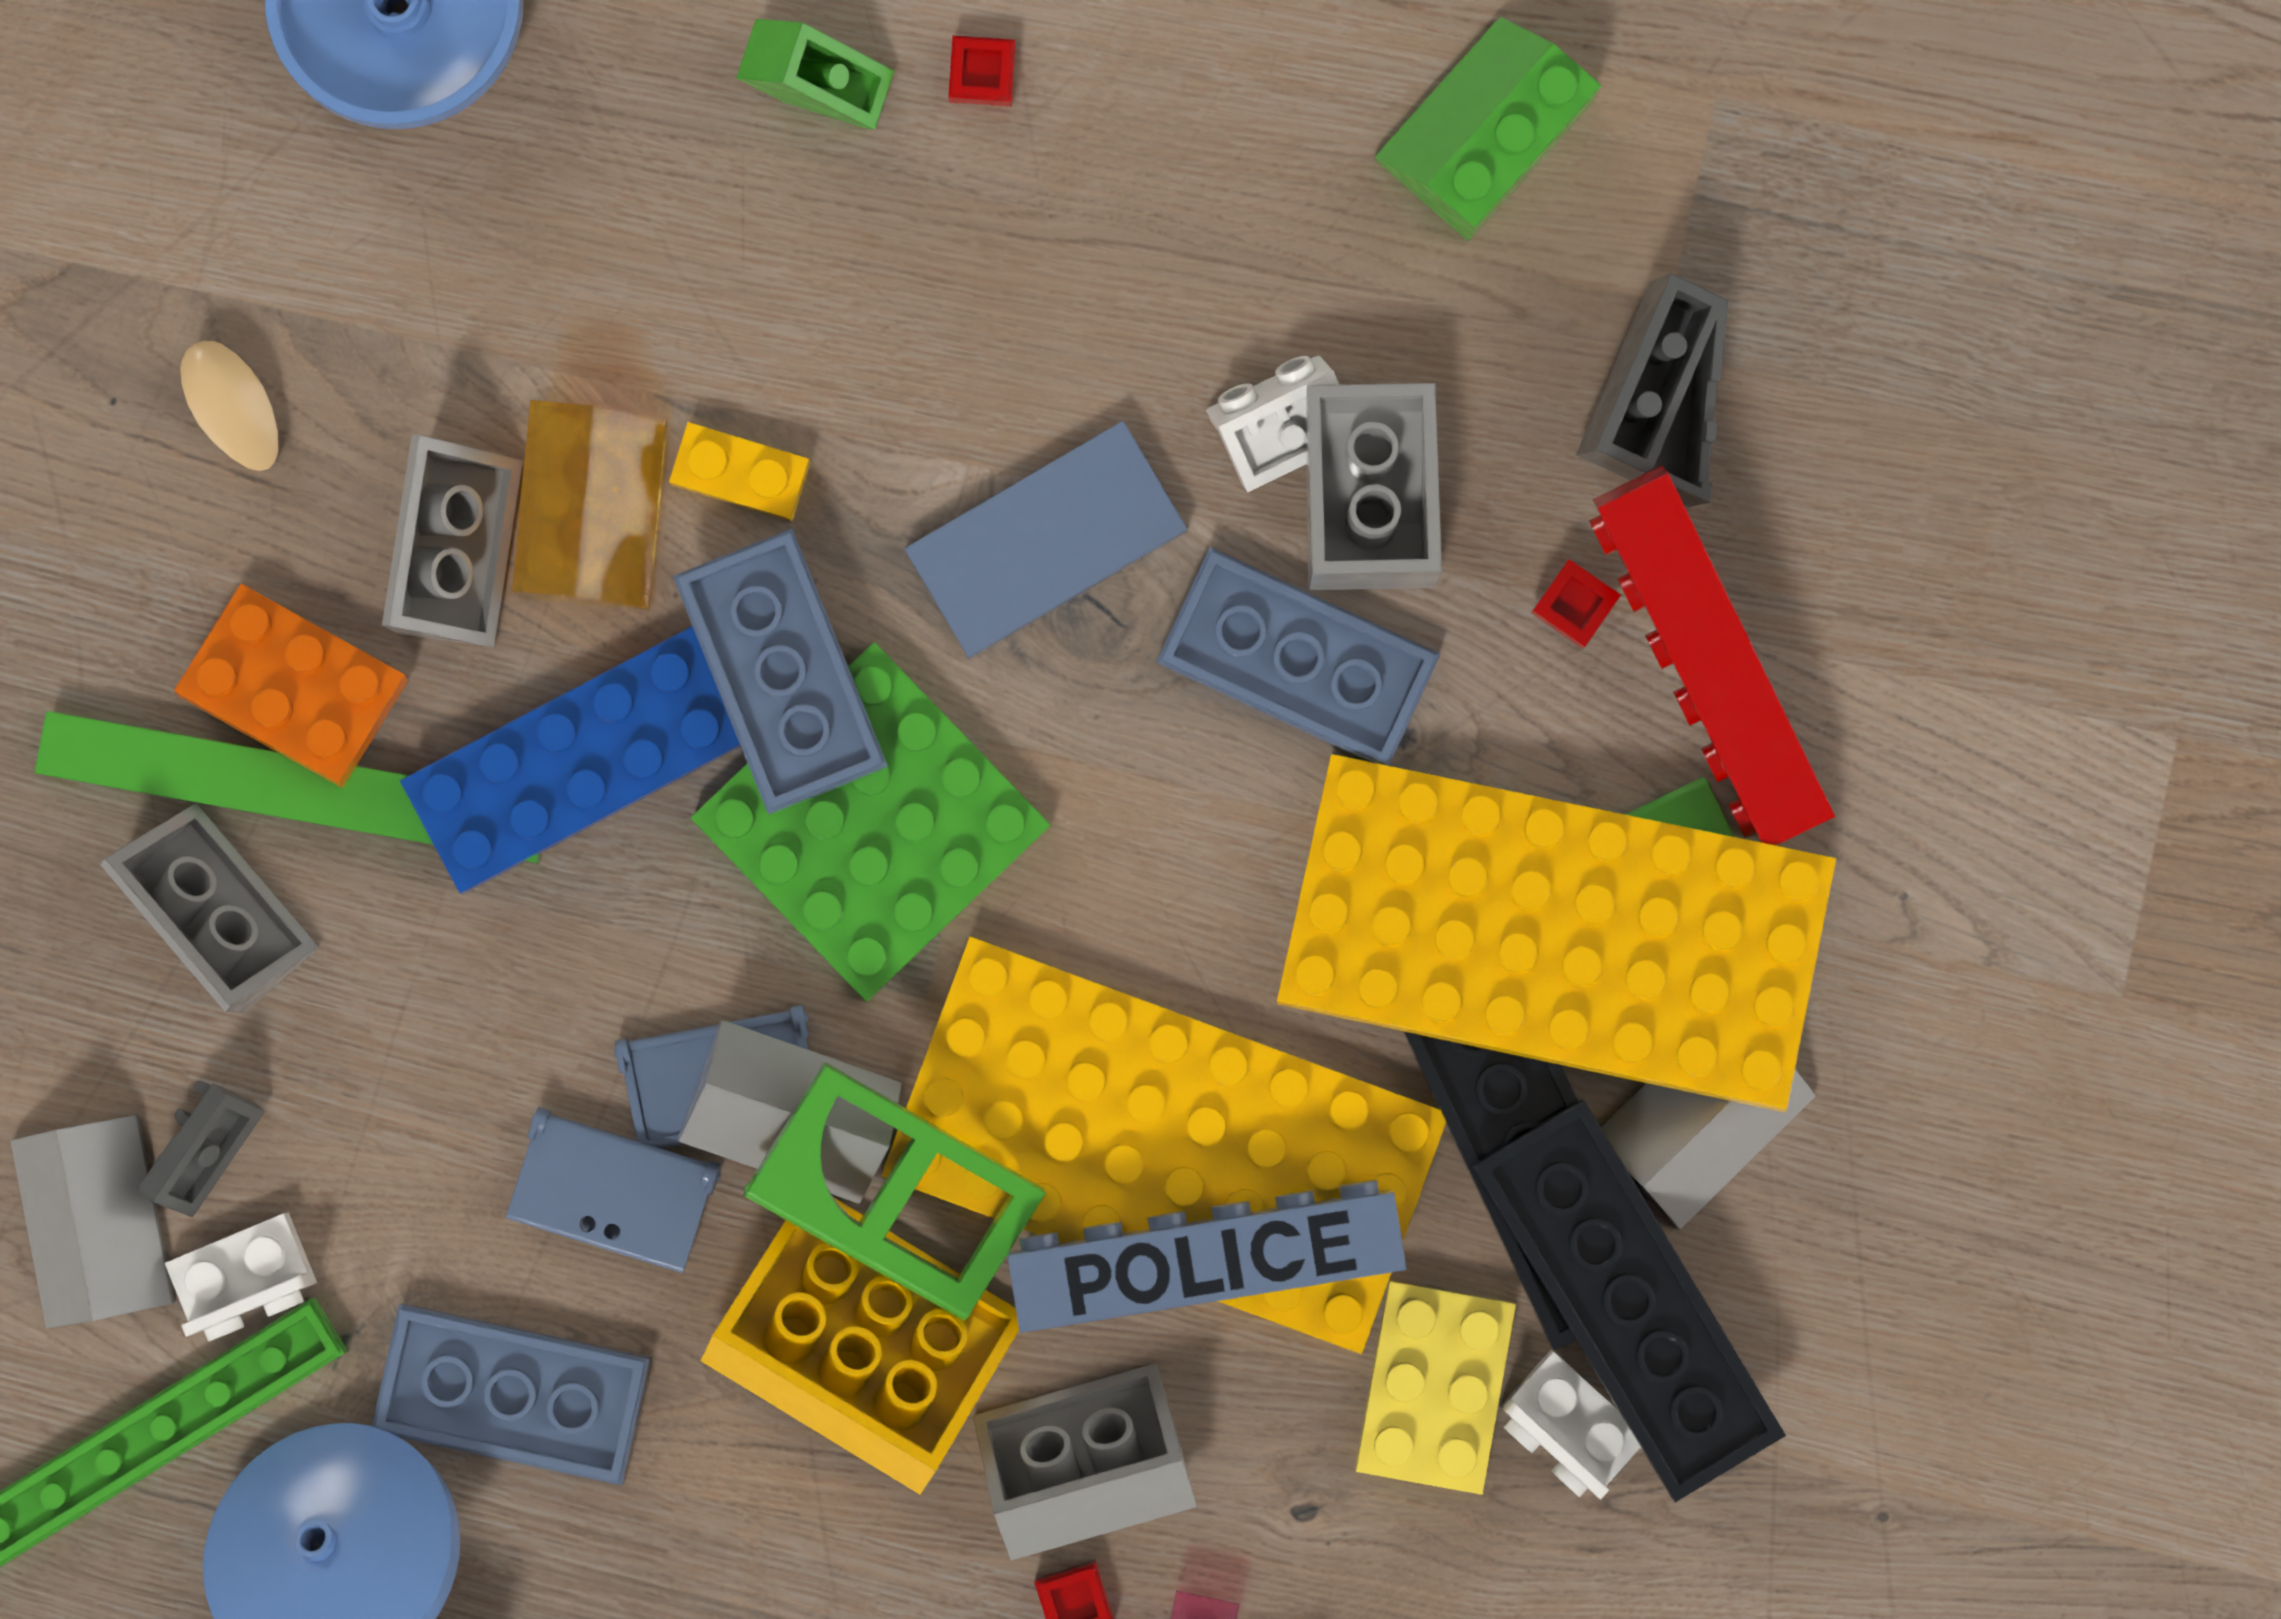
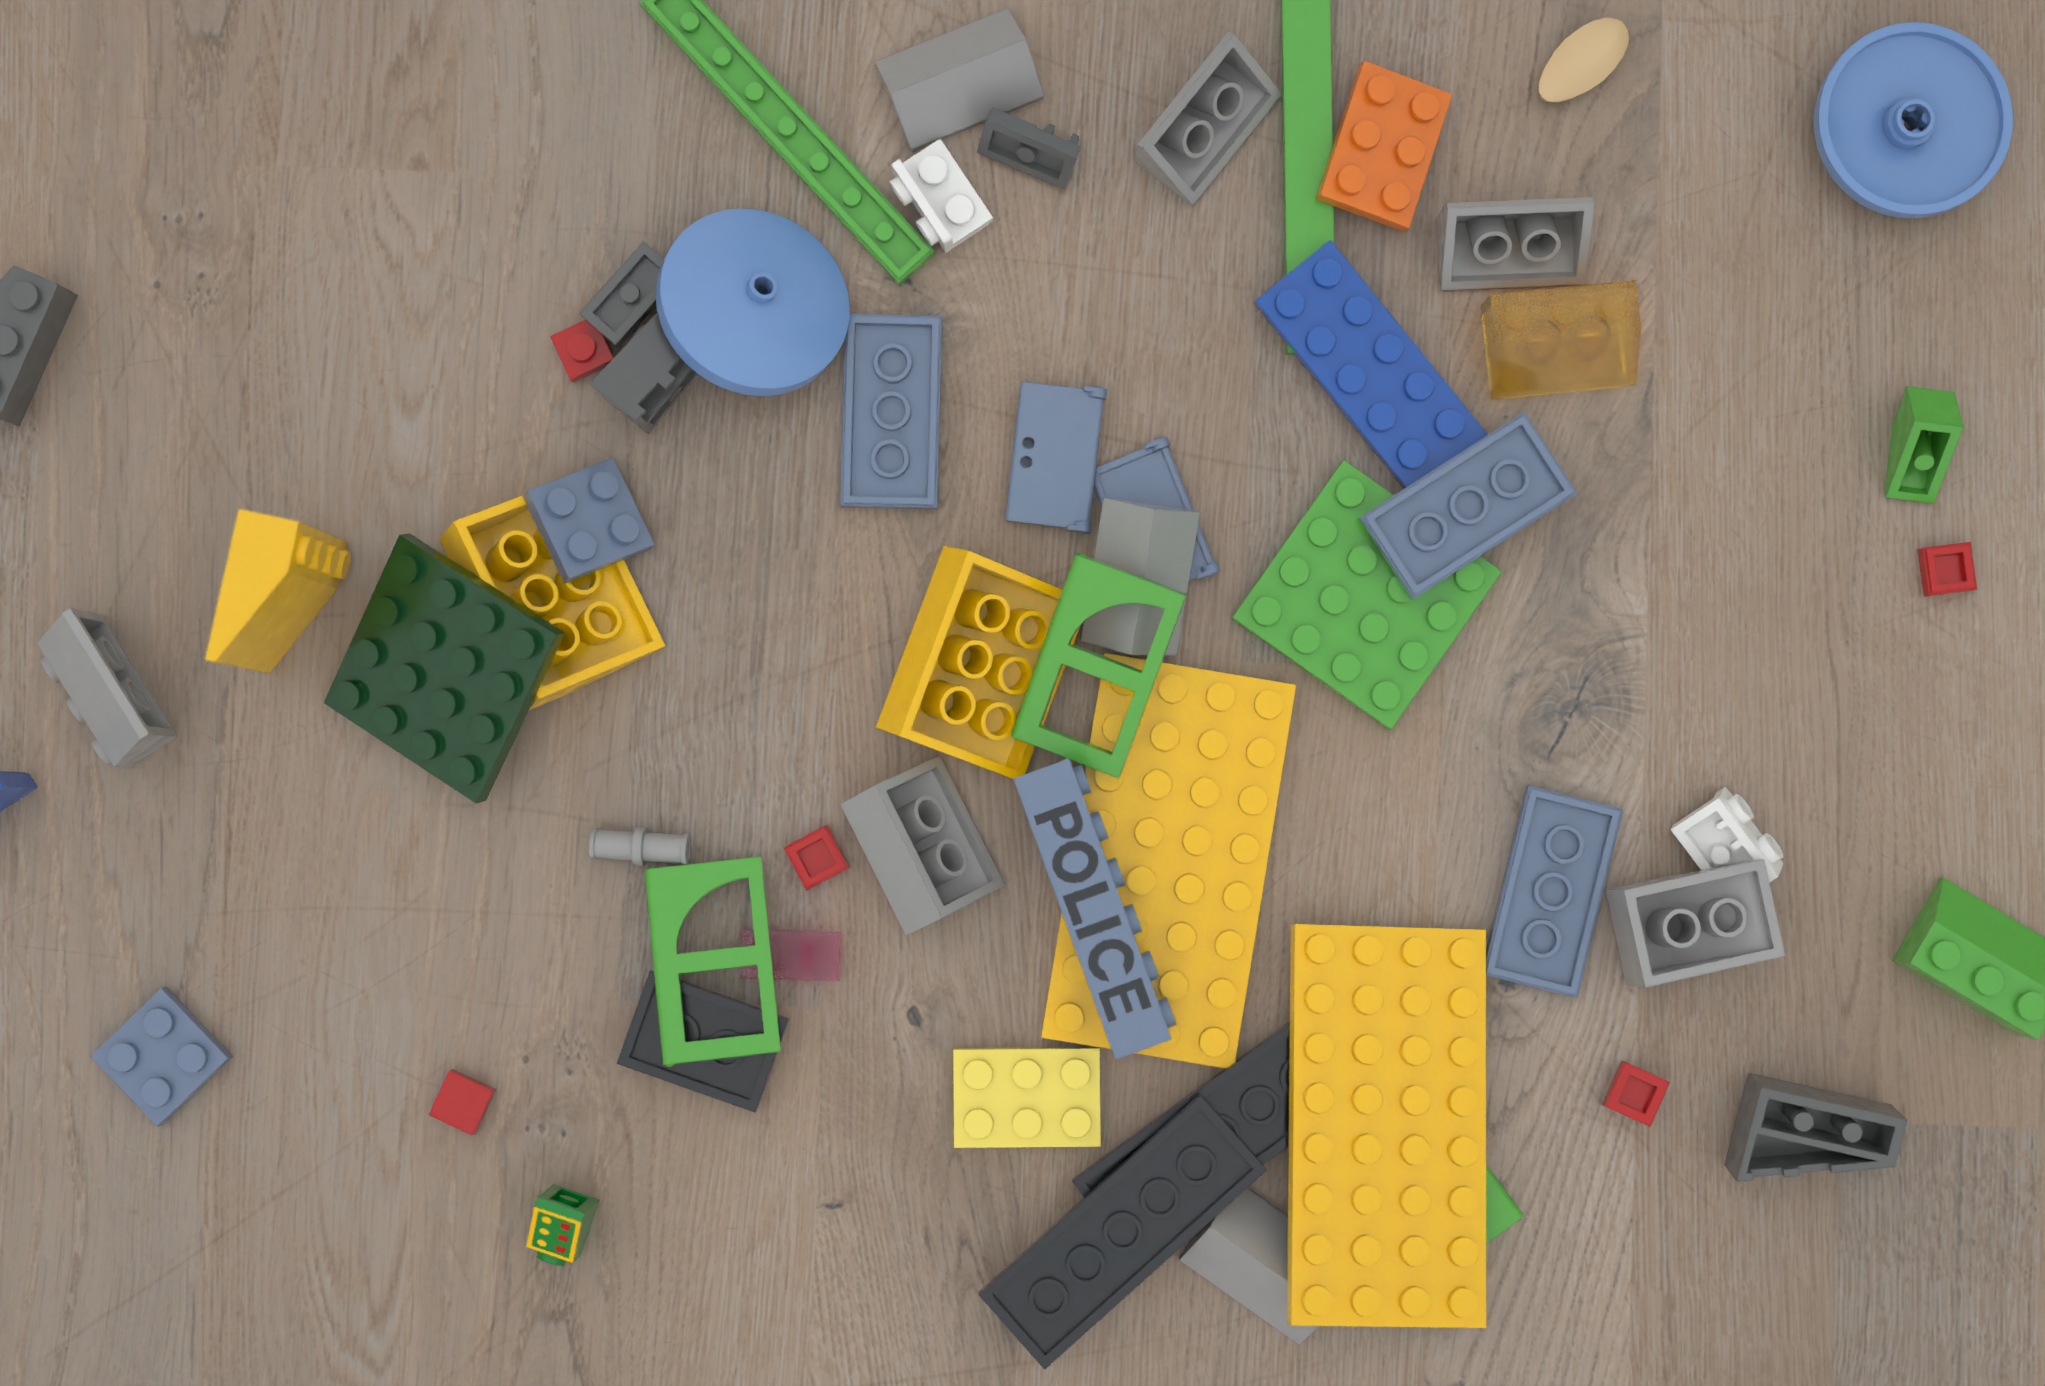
camera: 80 degrees right, 0 degrees up
(739, 471) = (1608, 446): yellow plate -> none
(1046, 539) = (1603, 685): sand blue tile -> none
(1572, 1424) = (1018, 1206): white bracket -> none
(1712, 656) = (1619, 1205): red brick -> none

